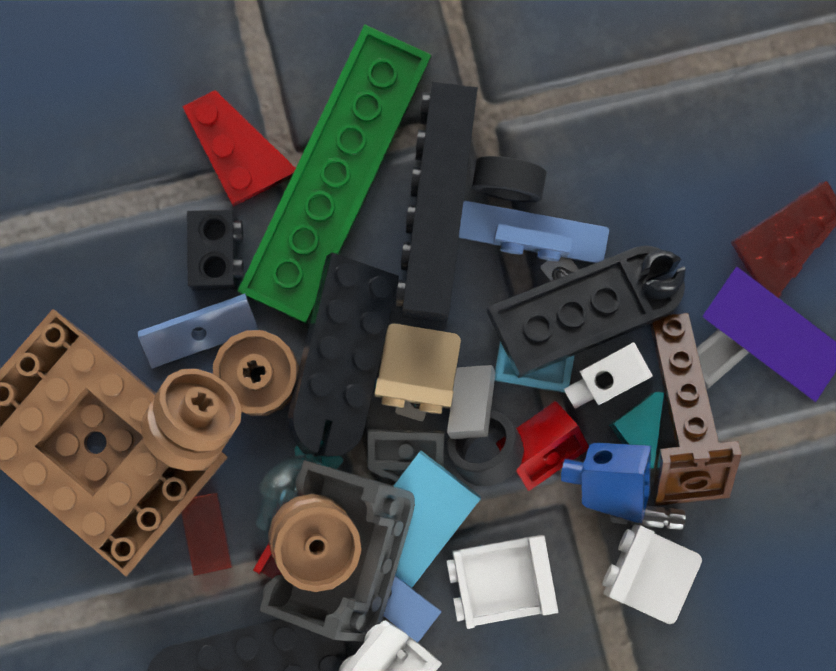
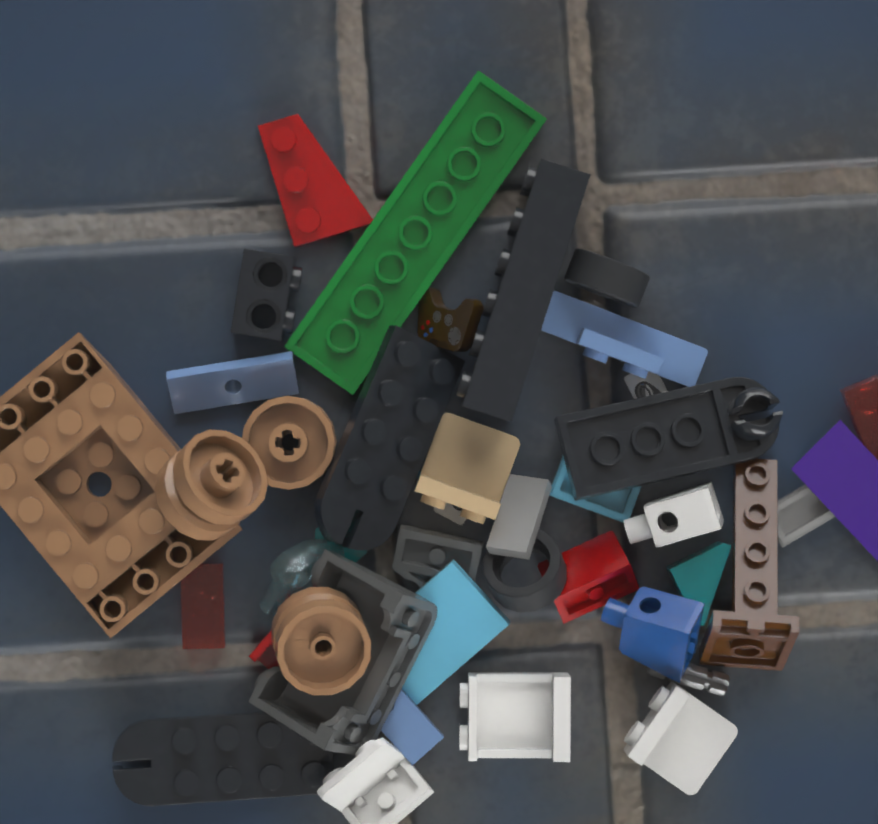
camera: 20 degrees right, 5 degrees up
(378, 247) = (446, 326): none -> dark brown piece

